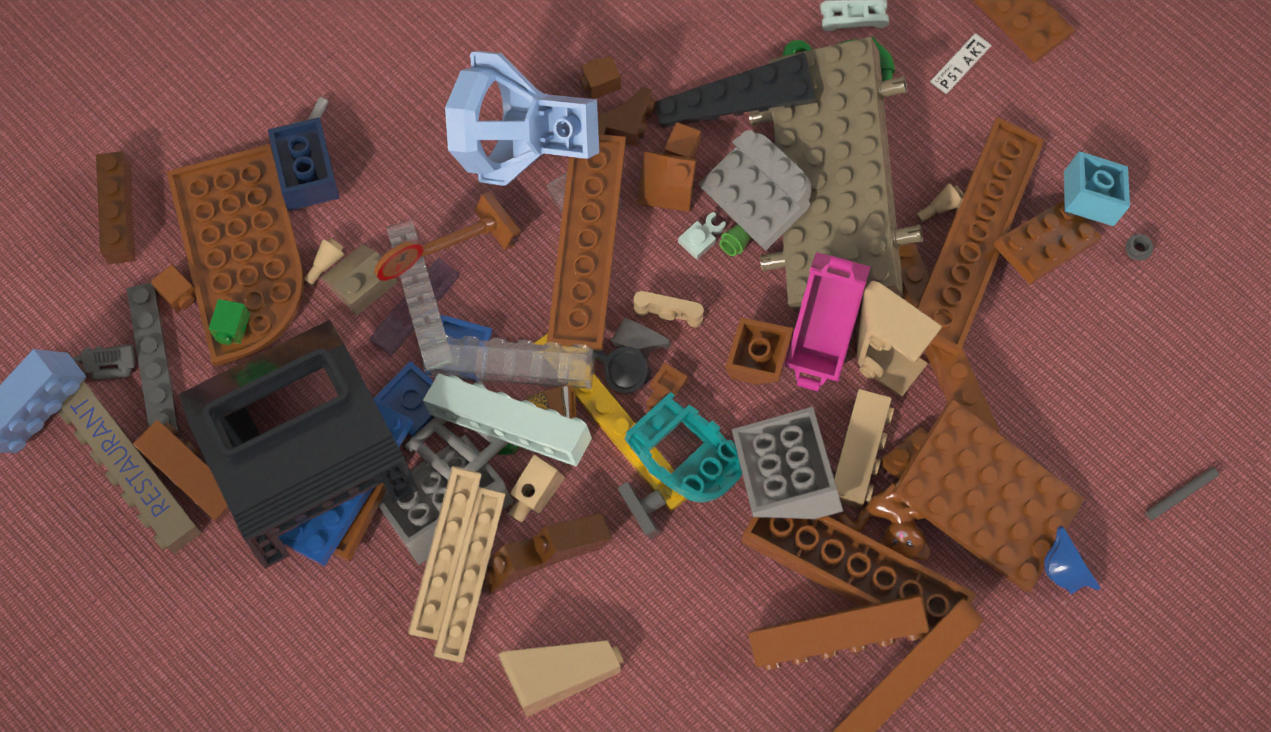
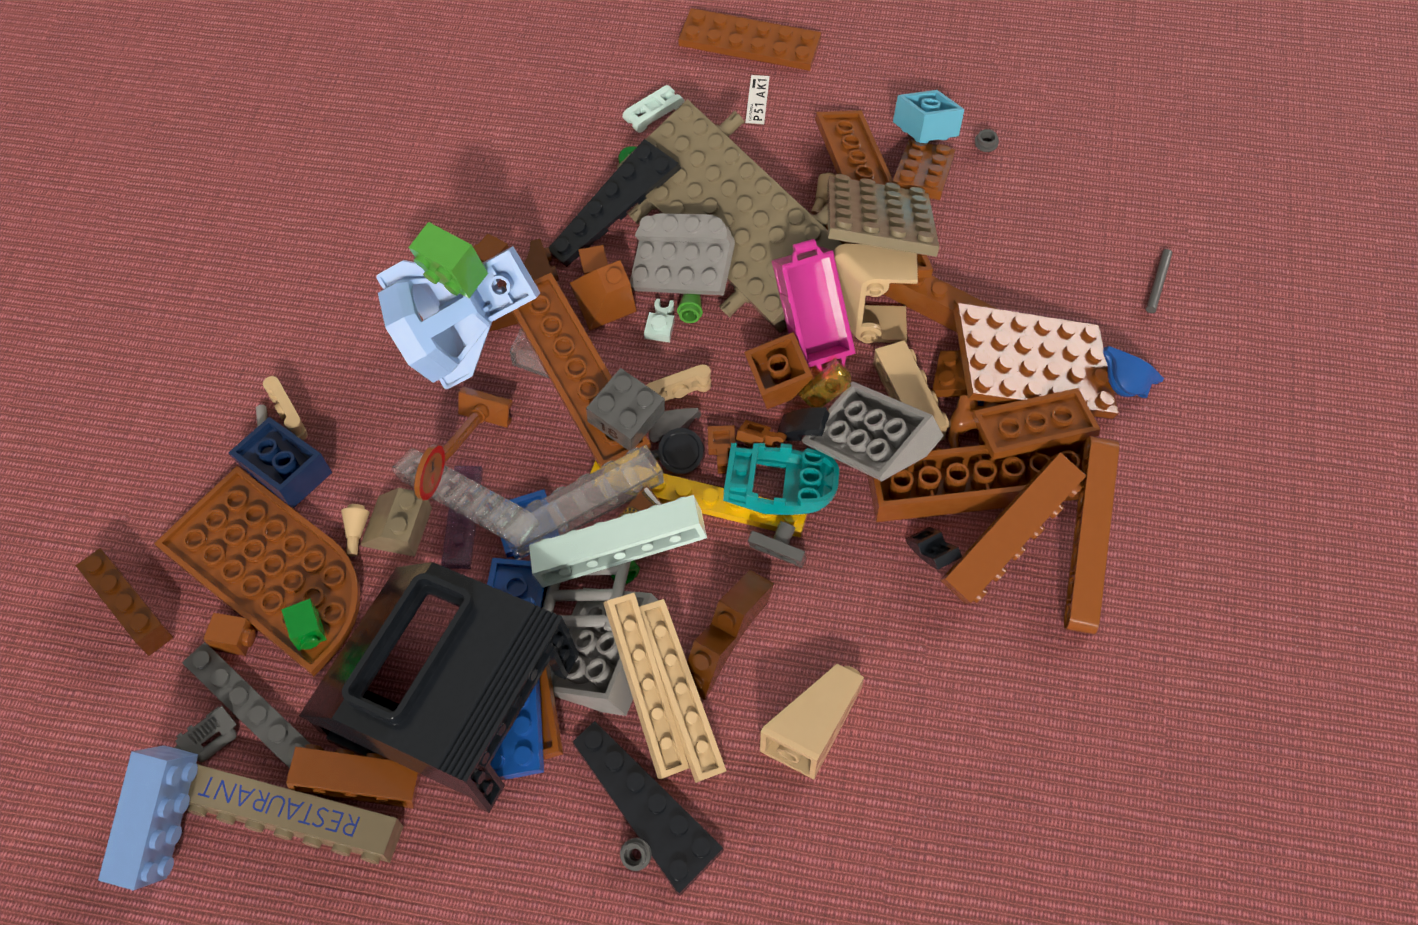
camera: 35 degrees left, 10 degrees down
(340, 116) = (284, 407): none -> tan plate
(342, 680) = (629, 860): none -> dark grey plate
(385, 670) = (675, 838): none -> black wing
(525, 85) = (448, 260): none -> bright green brick
(537, 477) = (679, 577): tan torso -> none
(596, 307) = (625, 409): none -> dark grey brick
(702, 398) = (756, 433): none -> dark orange plate
(744, 415) = (804, 422): none -> black slope
(766, 599) = (932, 548): none -> black slope
(791, 394) = (826, 385): none -> clear yellow leg
(933, 554) = (1035, 423): none -> dark orange plate
(942, 272) = (881, 215): none -> dark tan plate

